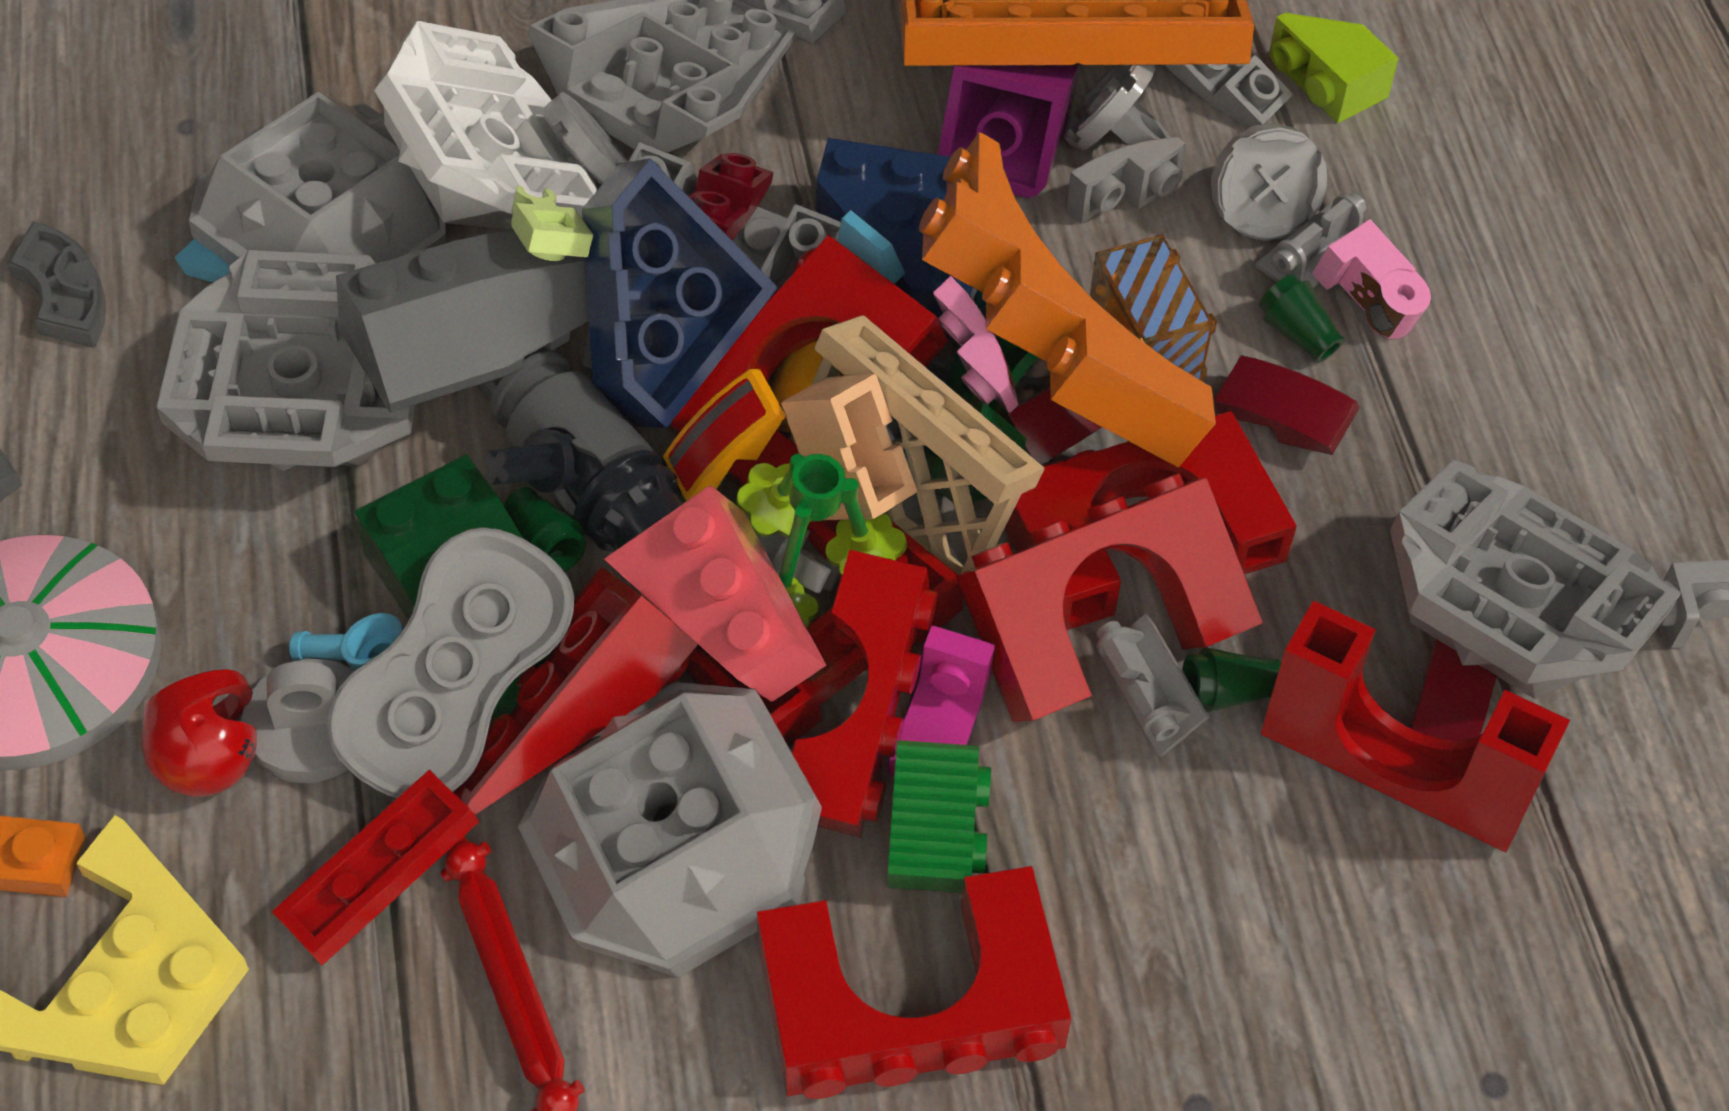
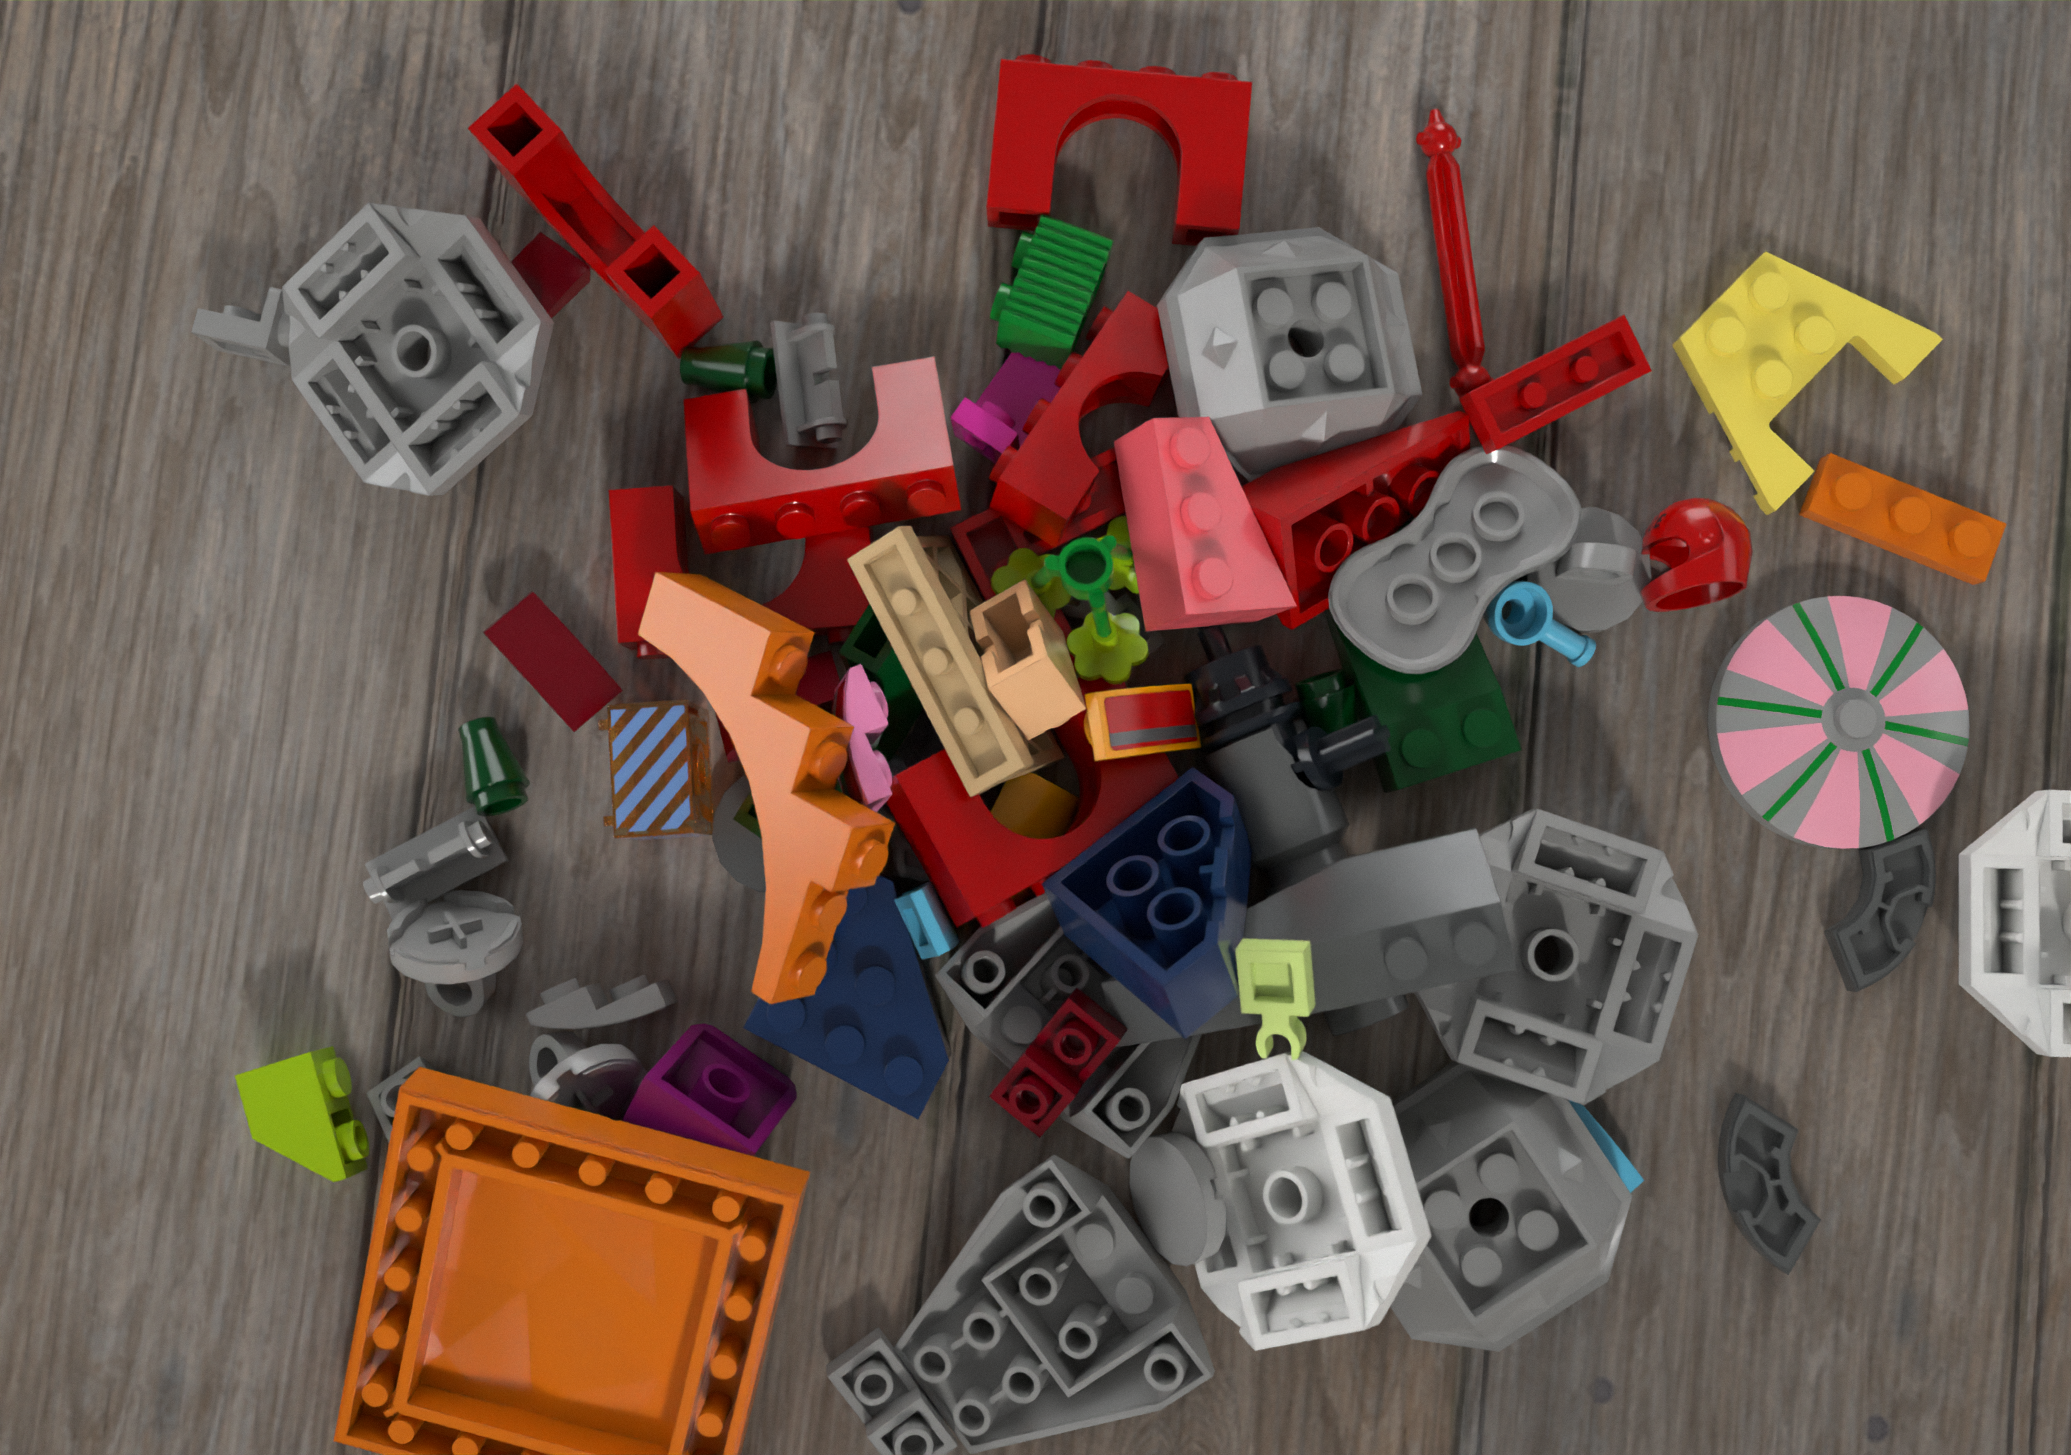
camera: 165 degrees left, 30 degrees up
(1376, 279) = (390, 789): bright pink leg -> none

